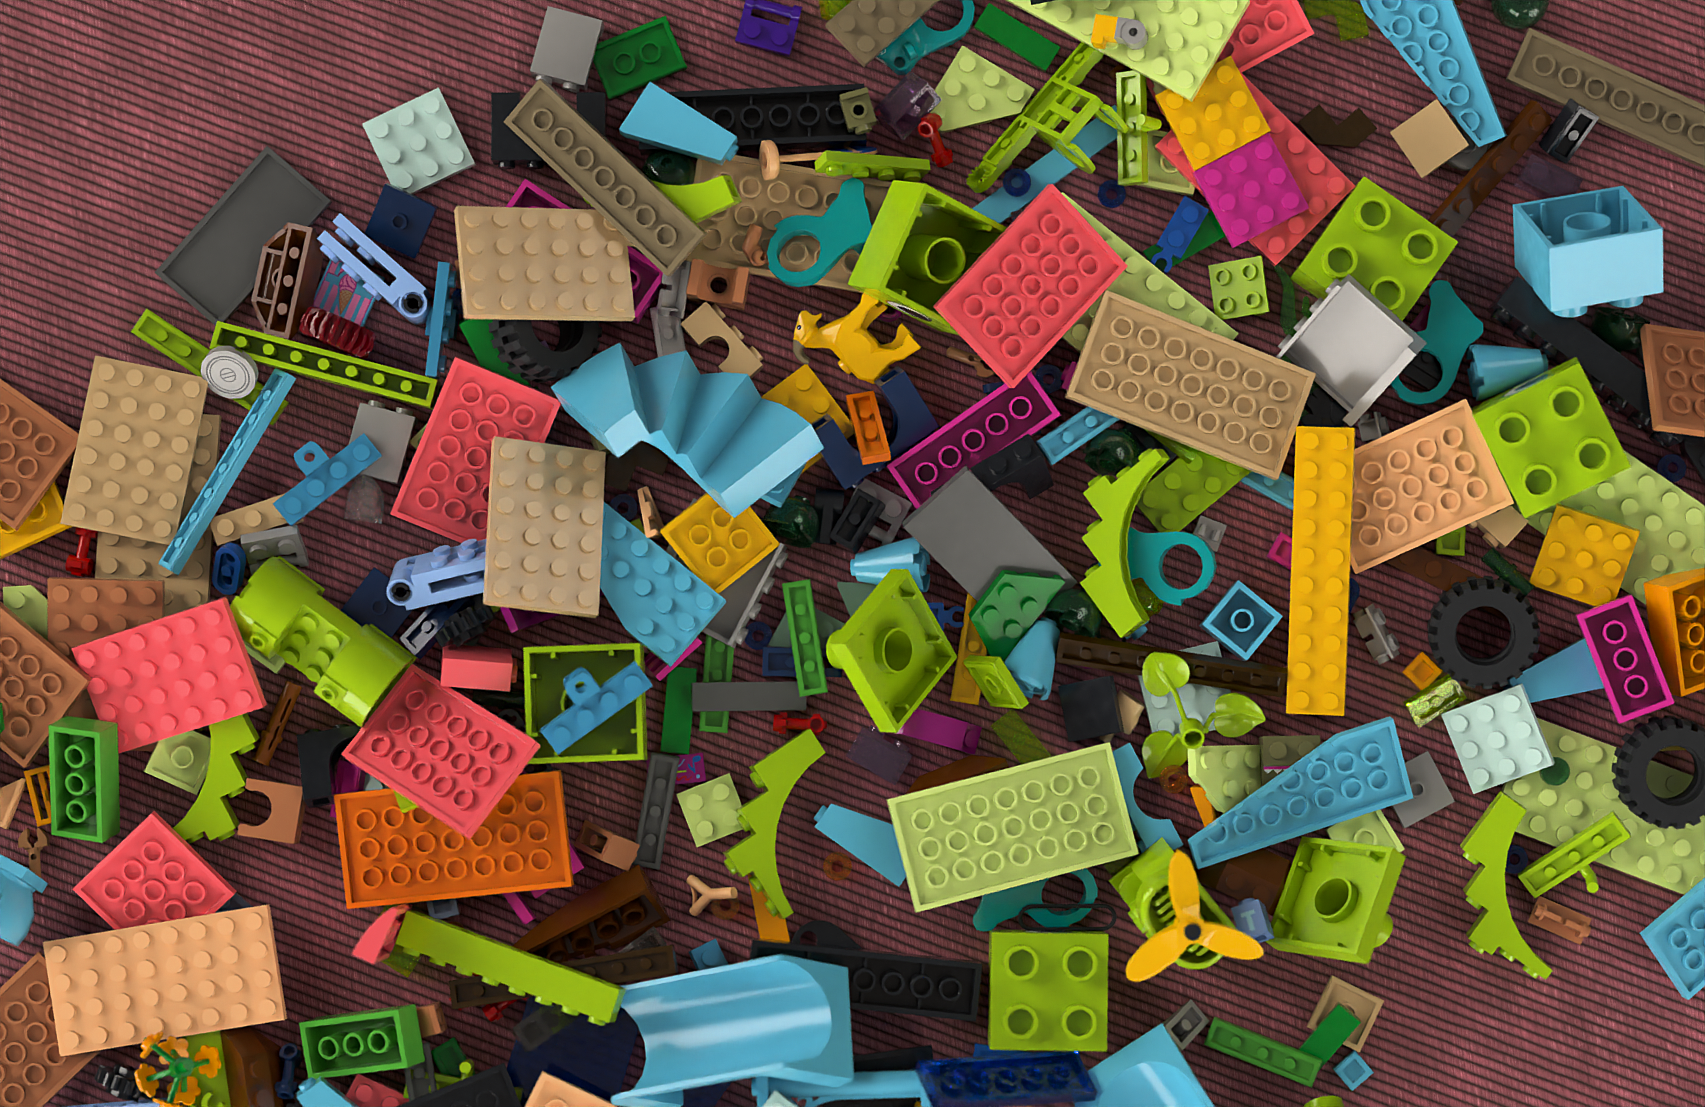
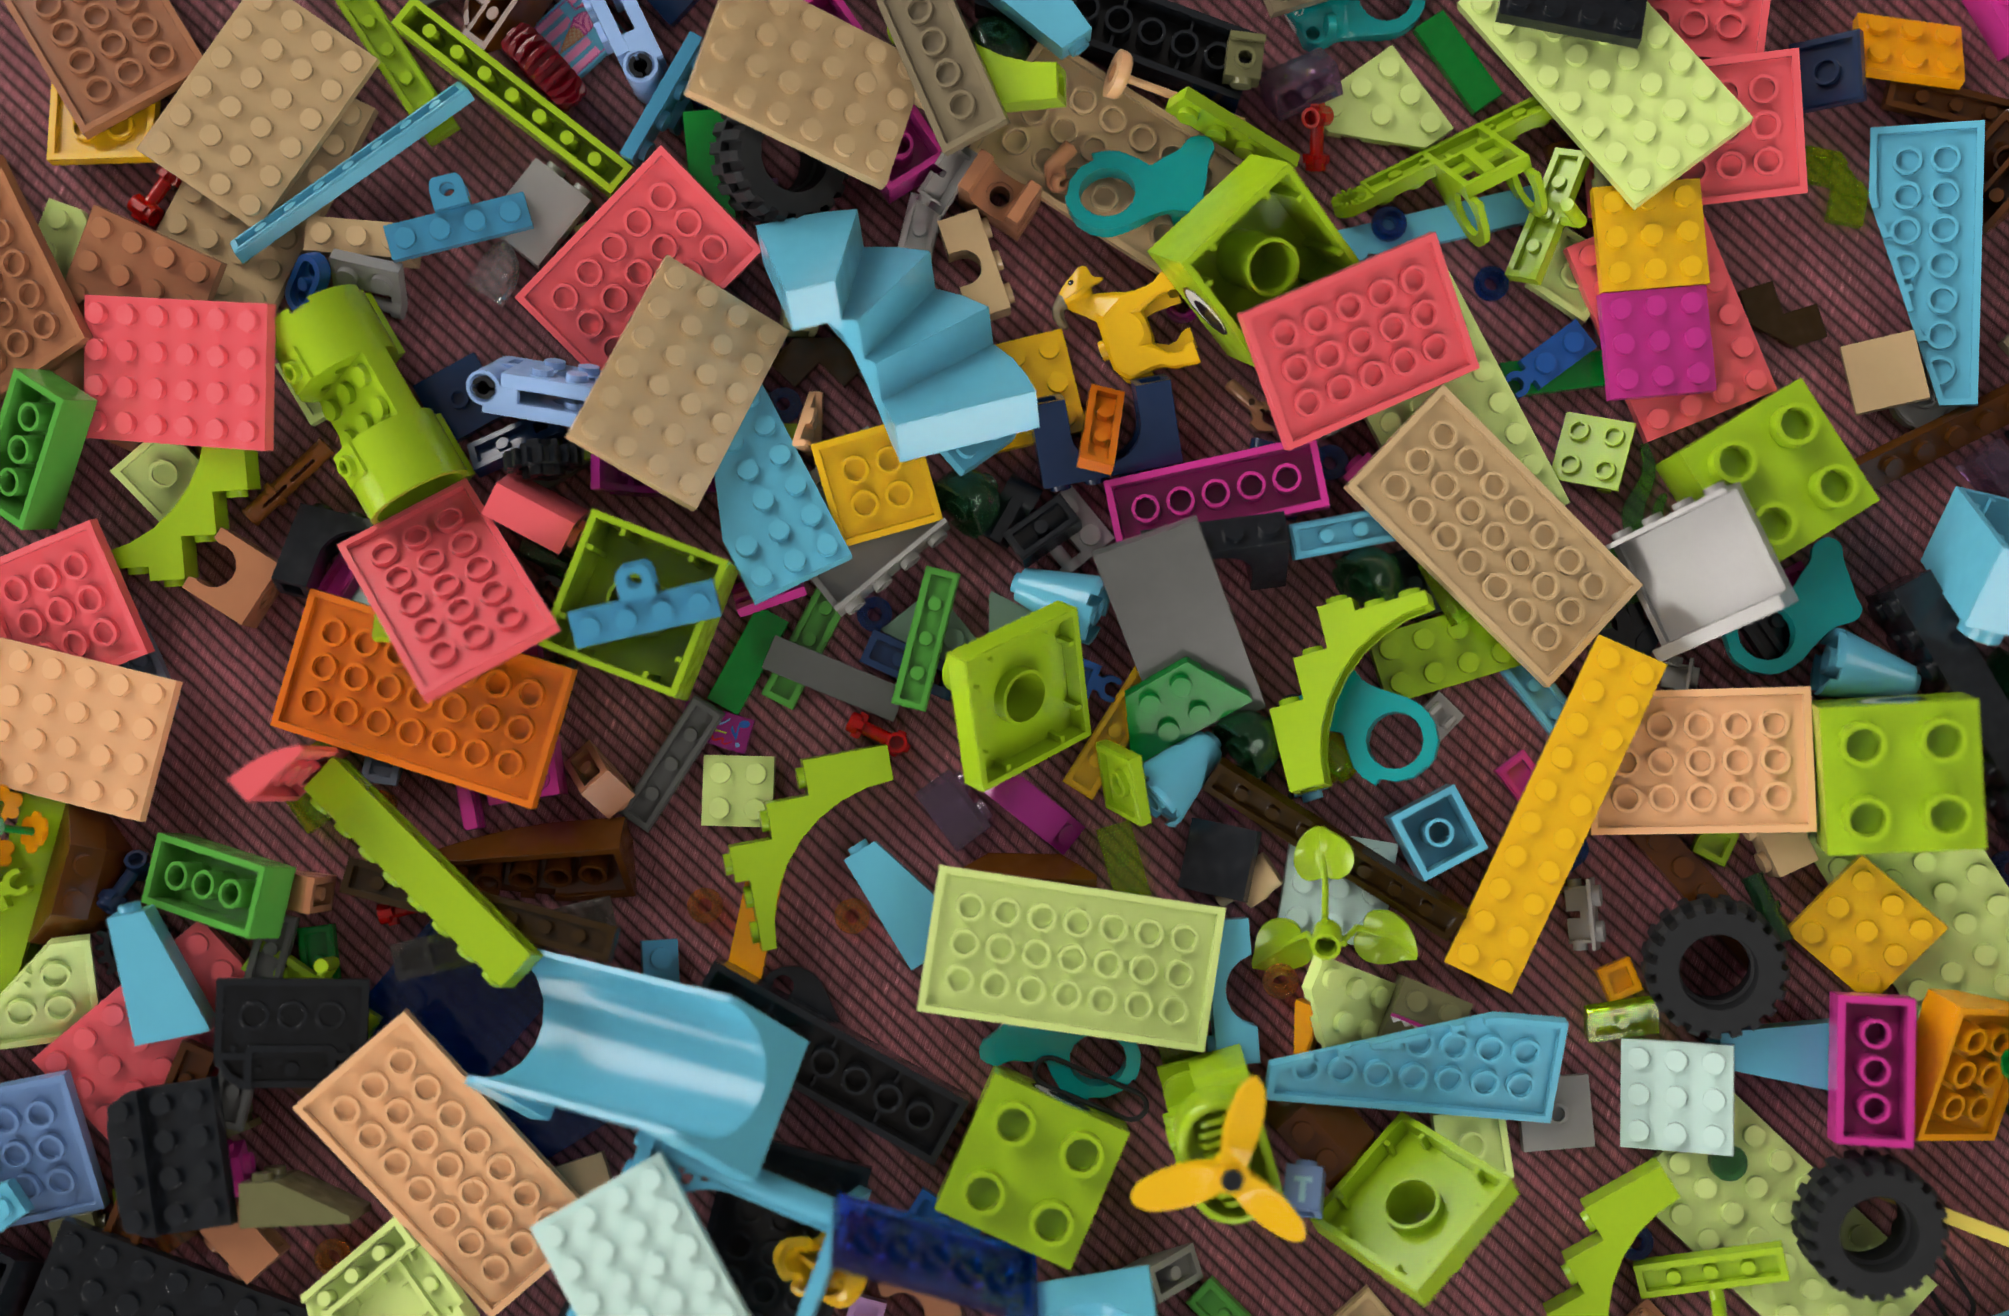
camera: 25 degrees right, 0 degrees up
(229, 372) = (403, 60): tile -> none
(708, 894) = (690, 885): light nougat piece -> none
(1118, 30) = (1585, 92): leg -> none

